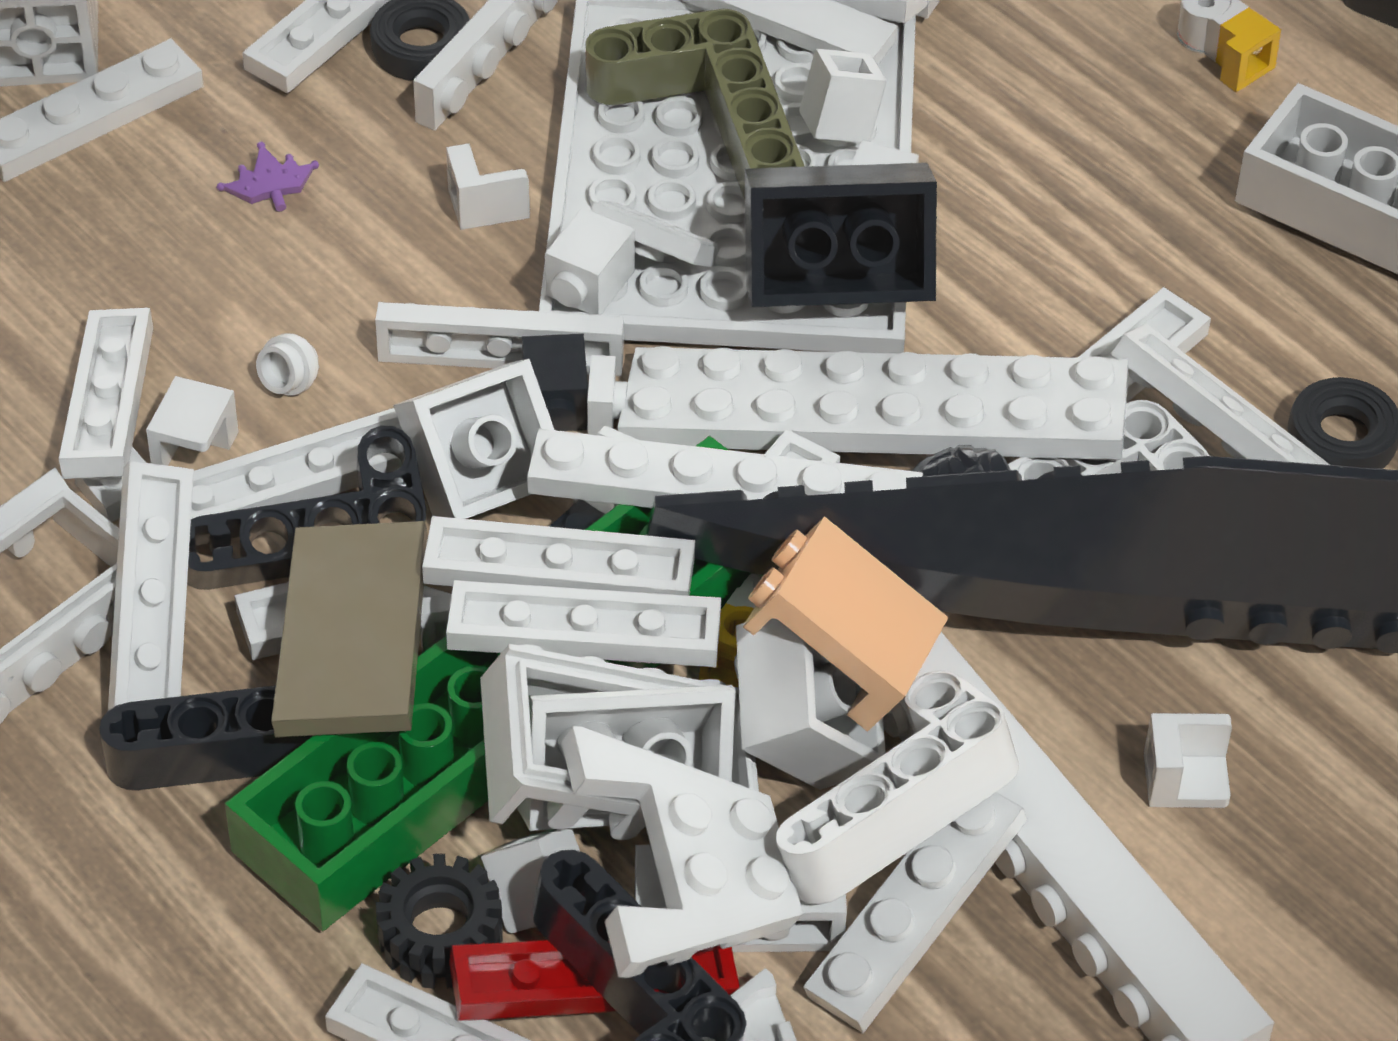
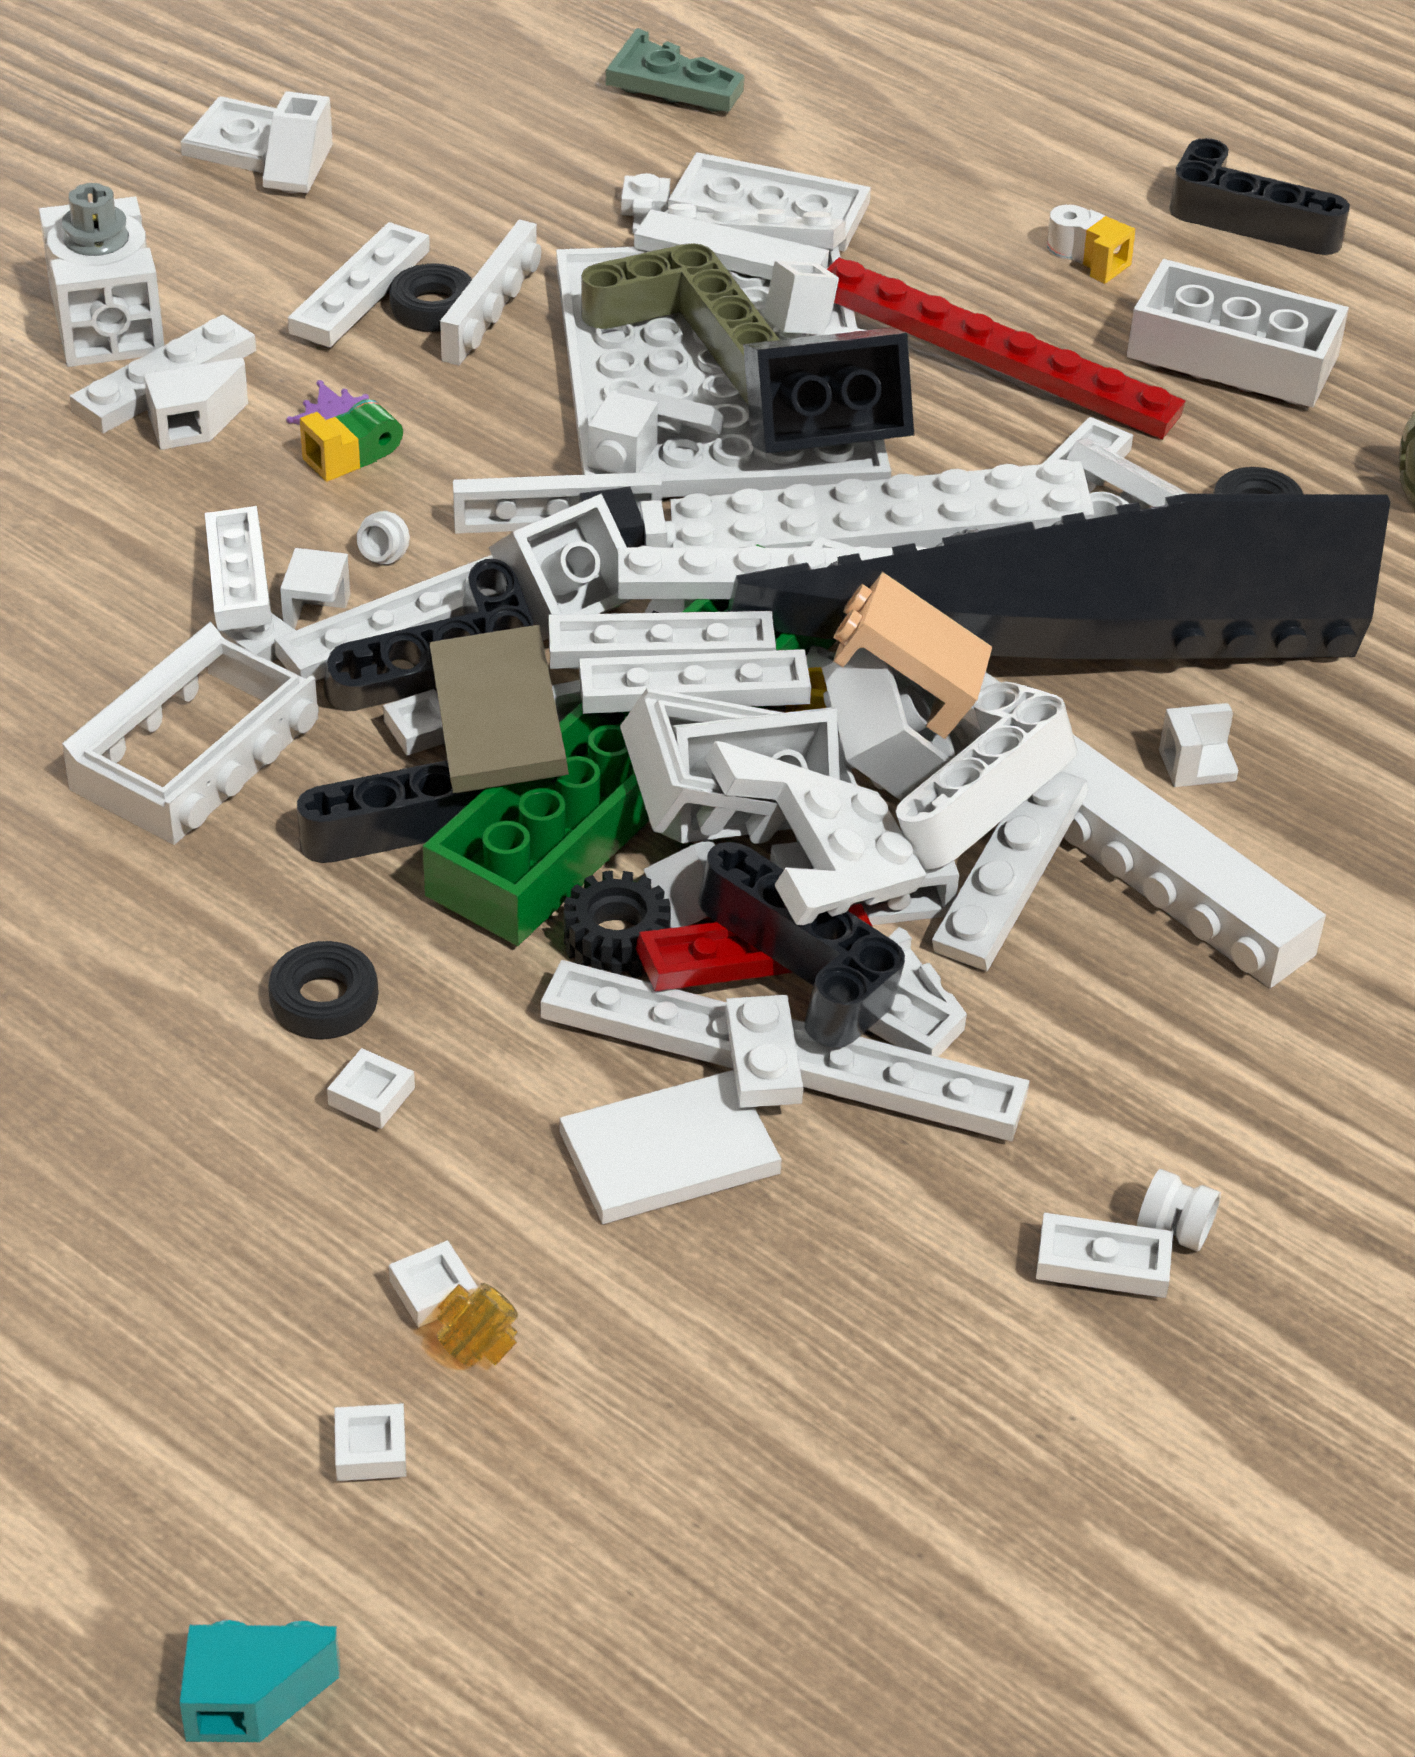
camera: 10 degrees left, 5 degrees down
(94, 1000) = (325, 1018): none -> black tyre
(112, 156) = (195, 401): none -> white slope
(150, 583) = (314, 693): white plate -> none
(279, 224) = (348, 440): none -> leg
(487, 197) = (515, 404): white panel -> none
(1082, 179) = (1006, 349): none -> red plate

